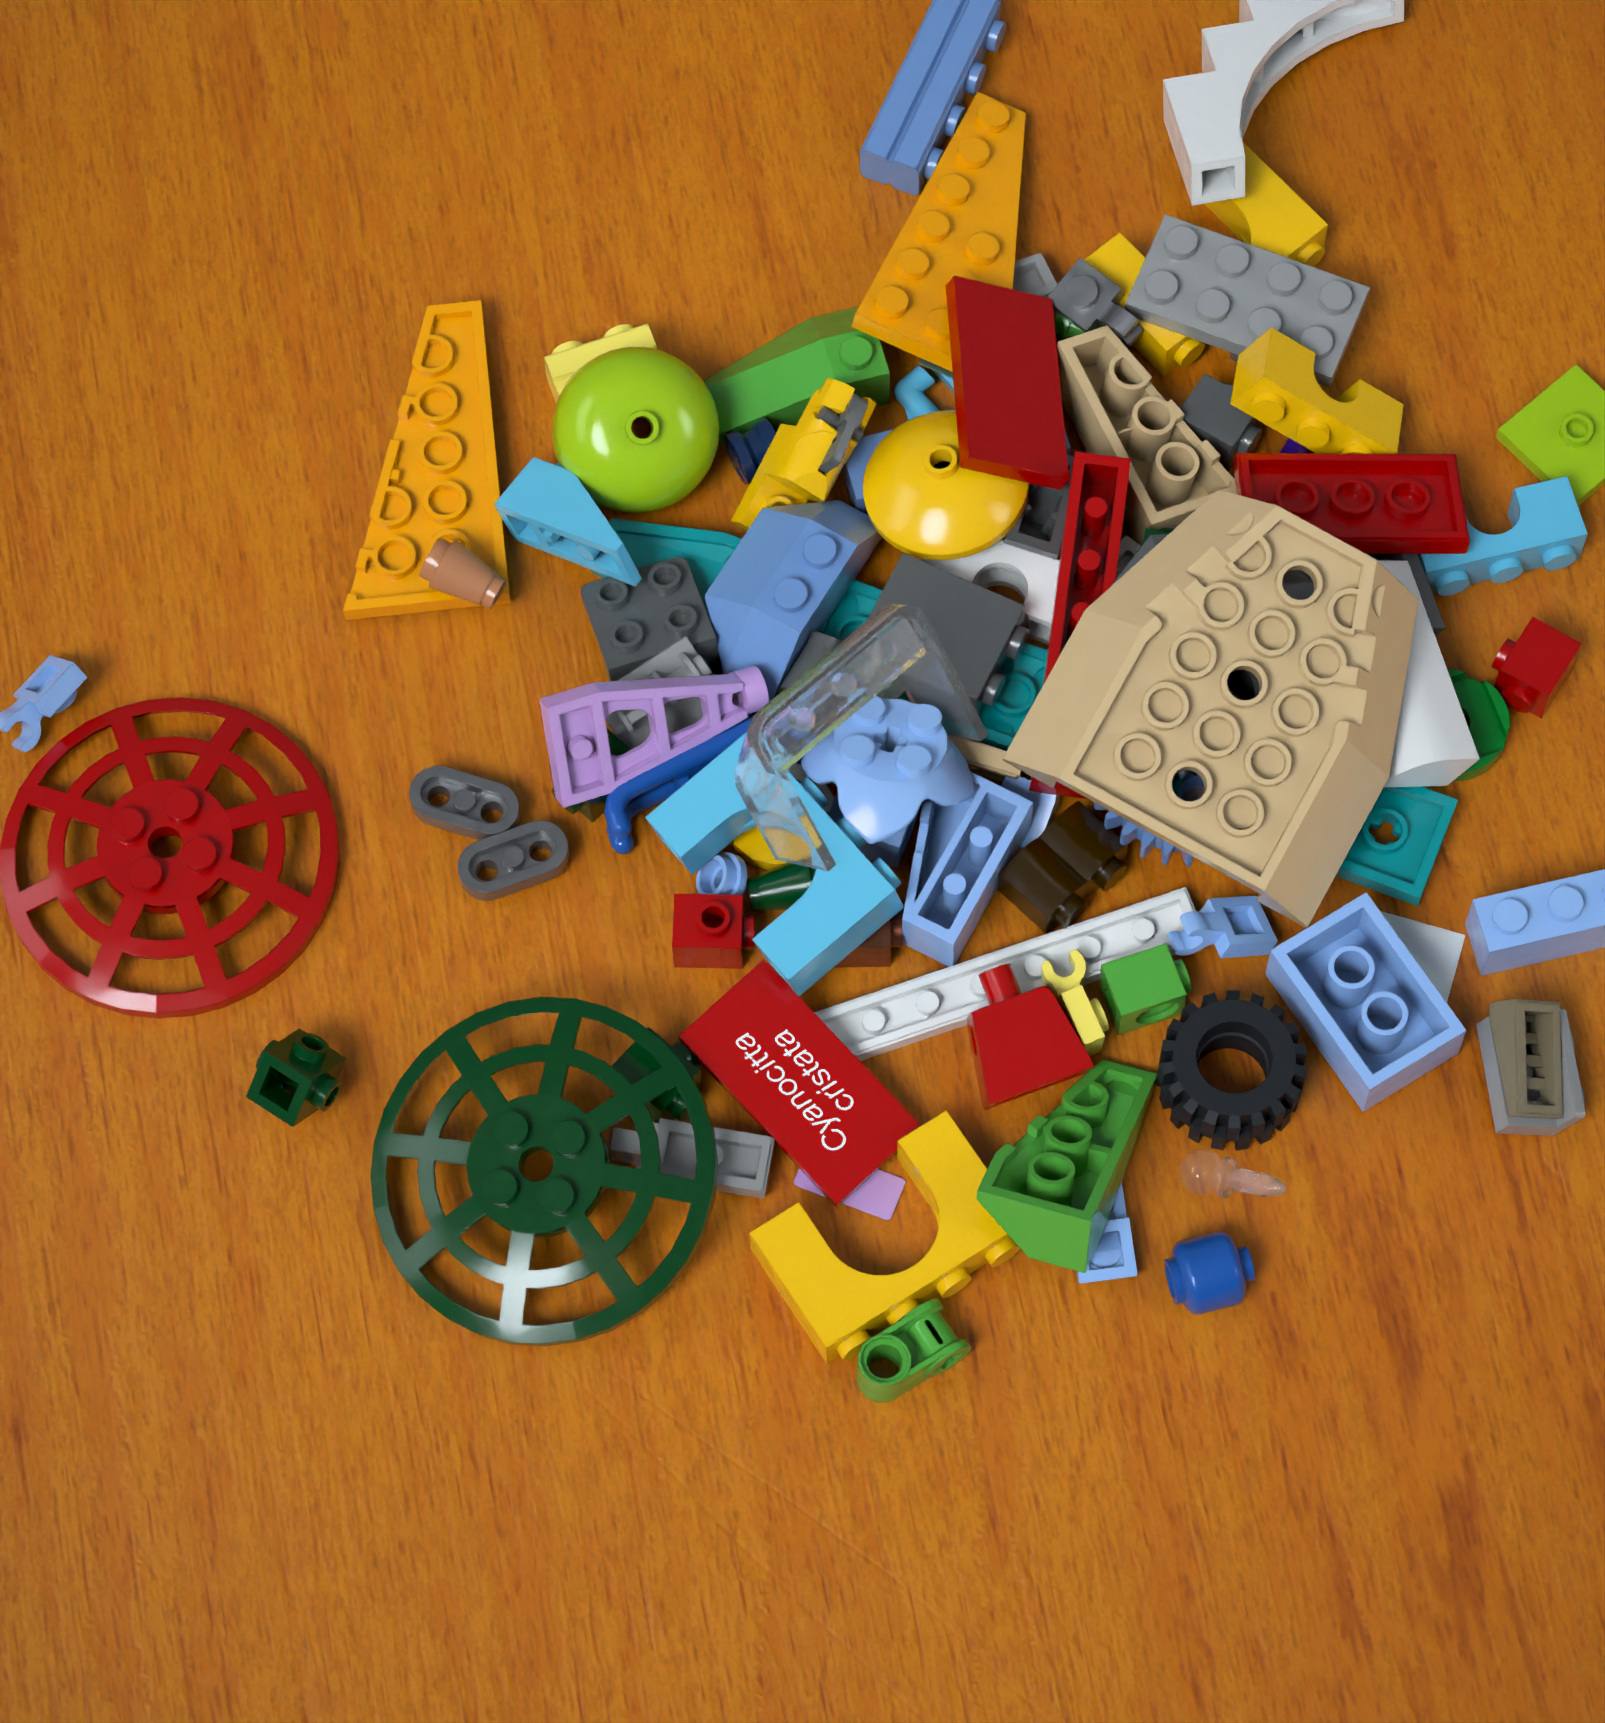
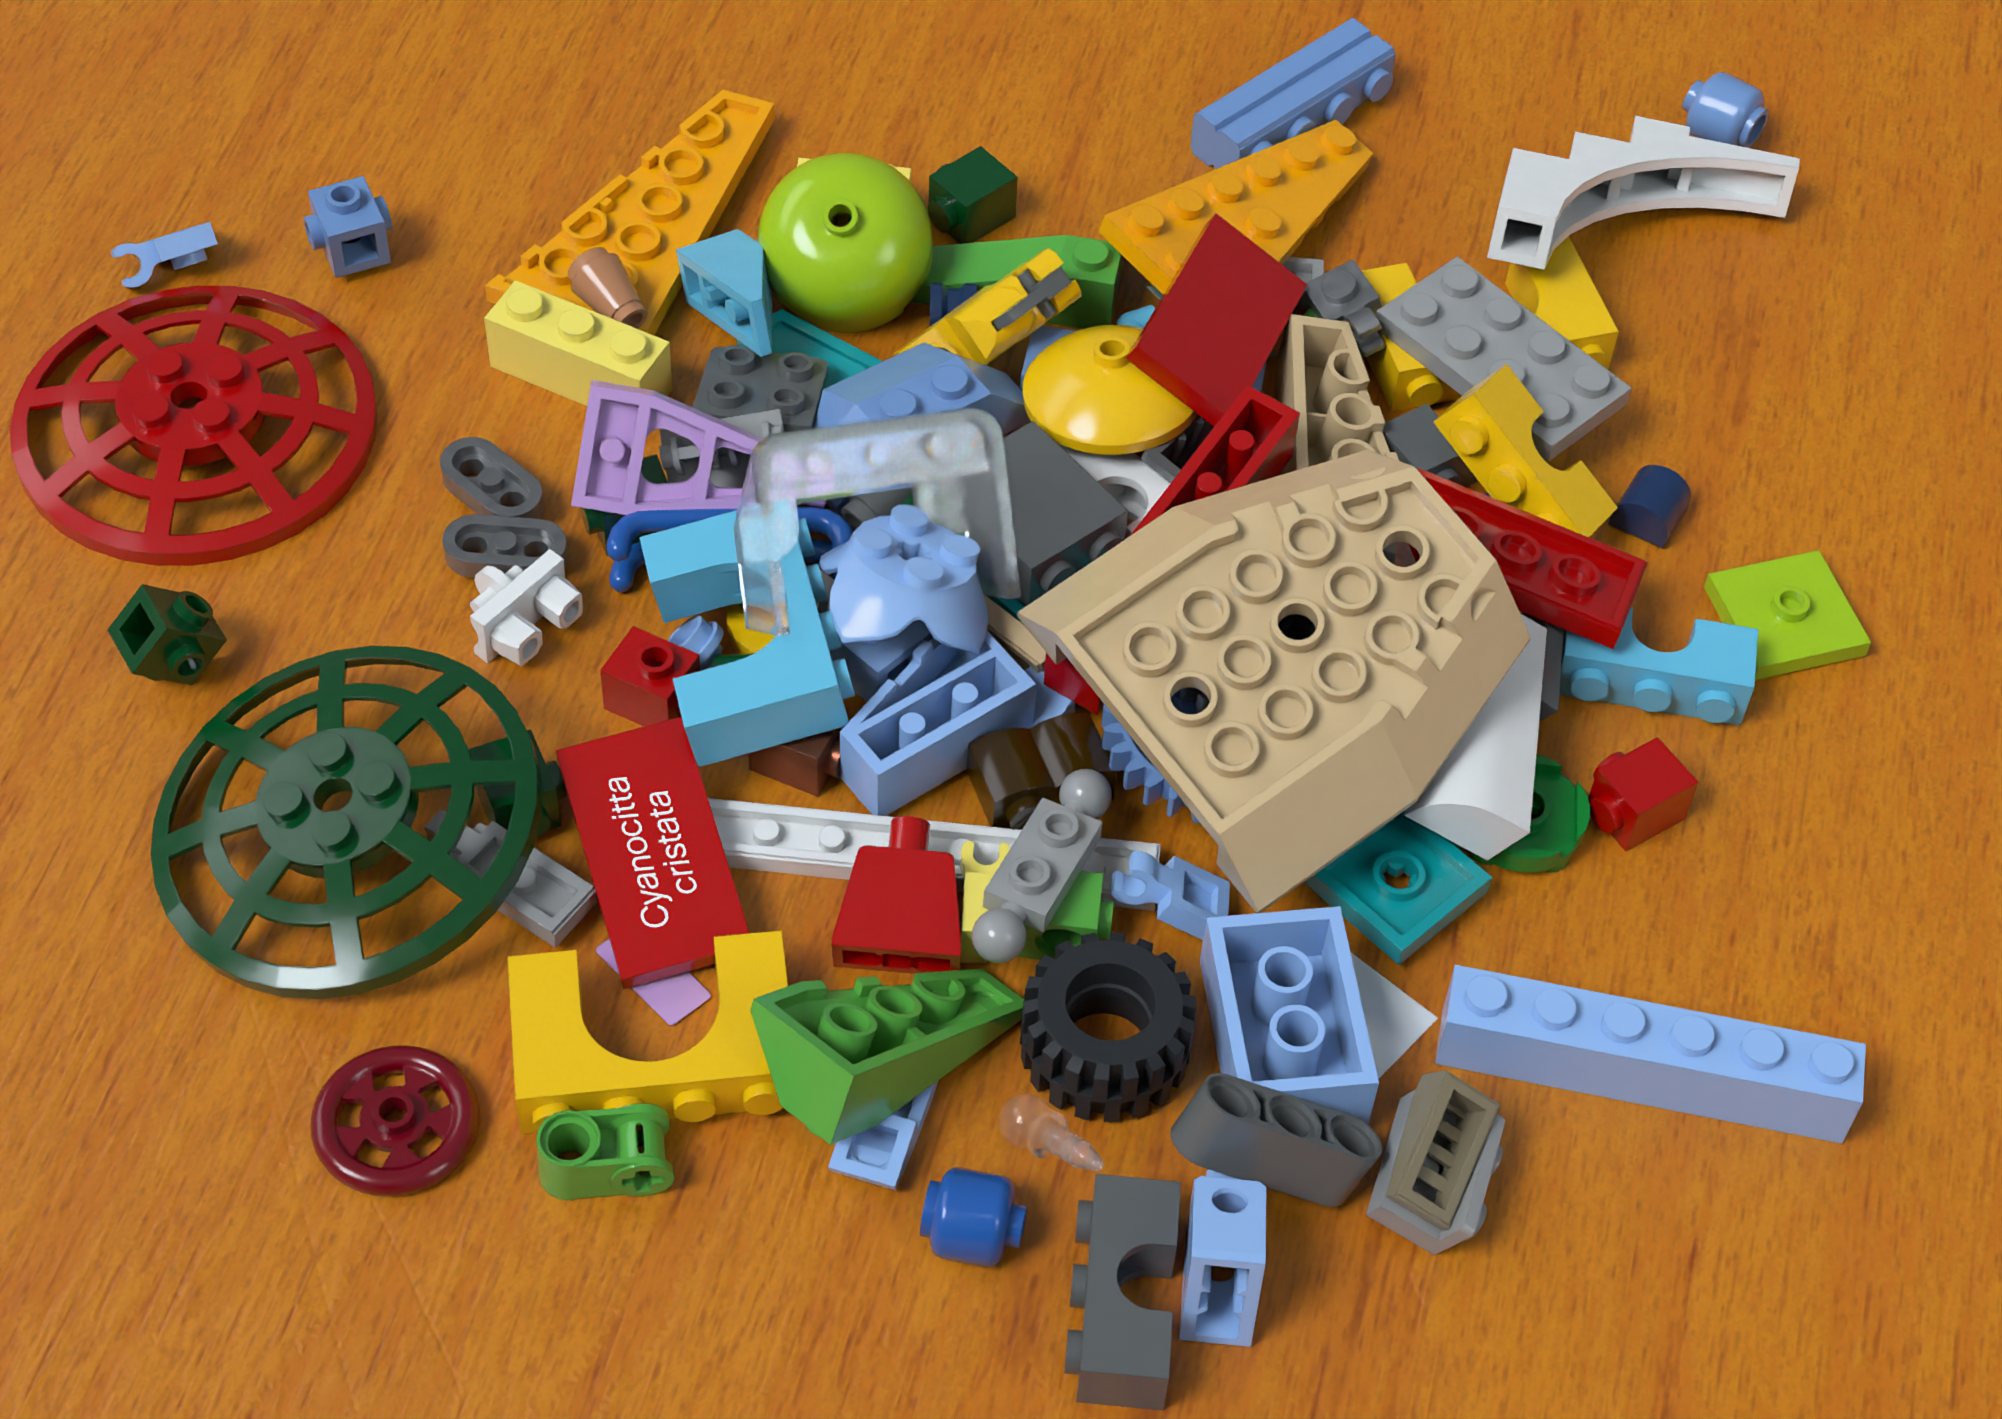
camera: 20 degrees right, 15 degrees down
(189, 605) = (349, 226): none -> medium blue brick
(465, 644) = (570, 346): none -> light yellow brick
(572, 890) = (515, 602): none -> white hips
(700, 1440) = (403, 1169): none -> dark red plate
(705, 321) = (972, 196): none -> dark green brick
(1119, 960) = (1041, 866): none -> light grey plate
(1365, 1325) = (1121, 1346): none -> dark grey arch
(1409, 1110) = (1275, 1140): none -> dark grey beam
(1411, 1217) = (1225, 1231): none -> light blue torso
(1423, 379) = (1652, 504): none -> dark blue brick

